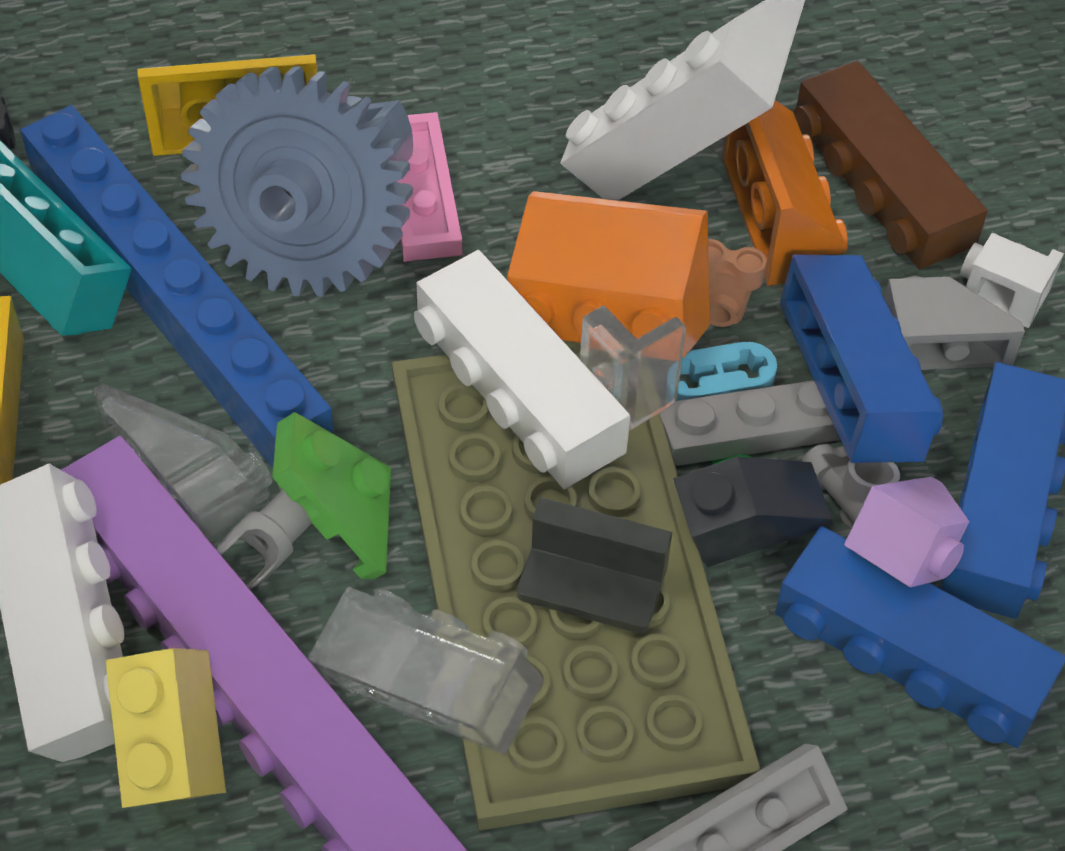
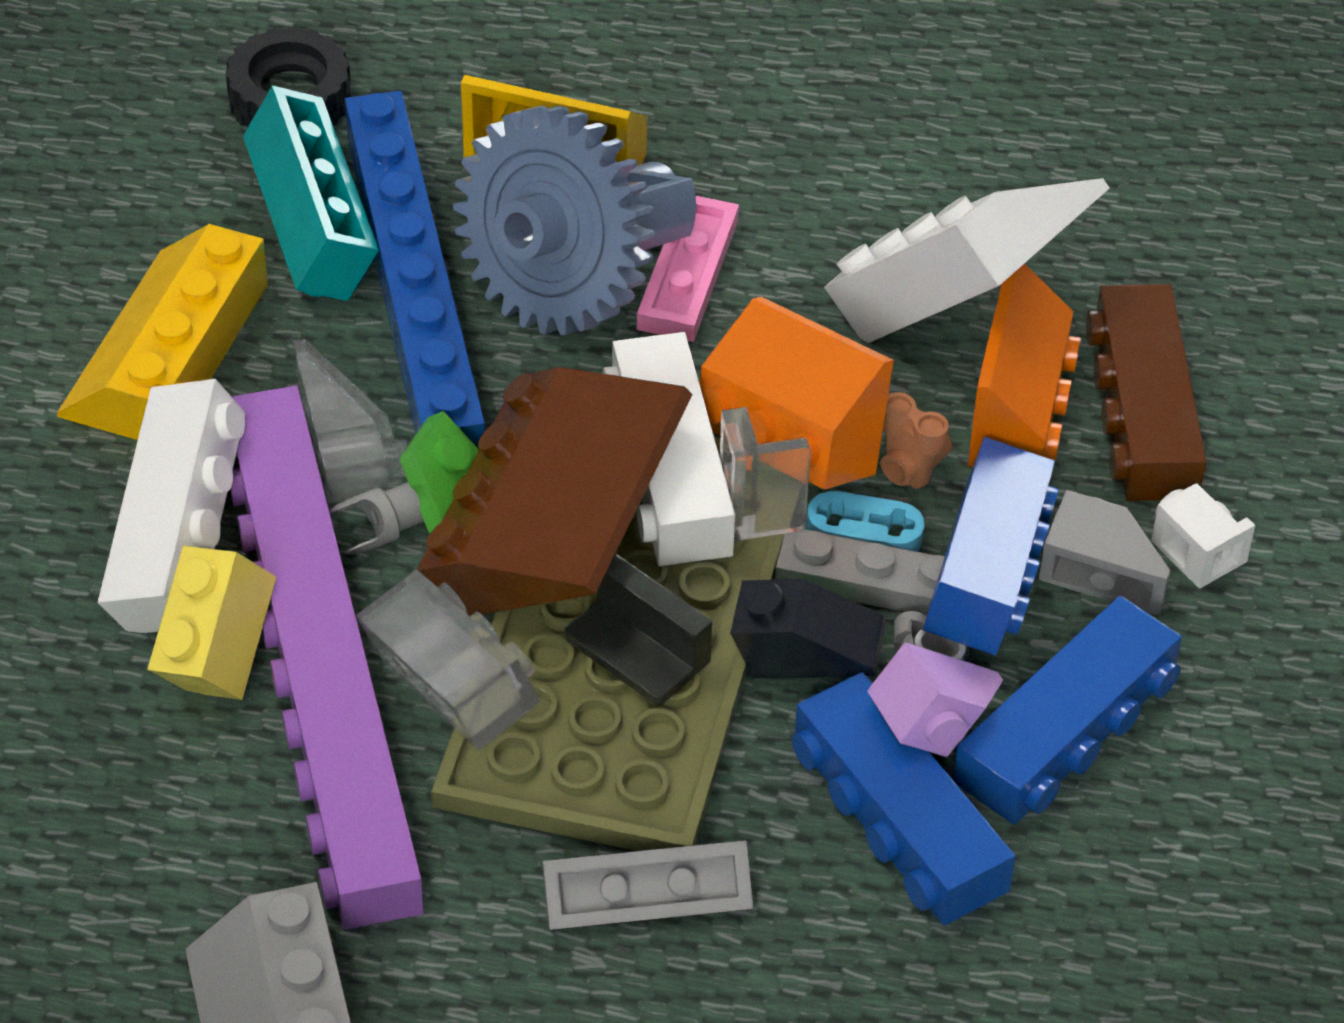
camera: 25 degrees right, 5 degrees down
(447, 454) = (552, 488): none -> reddish brown slope

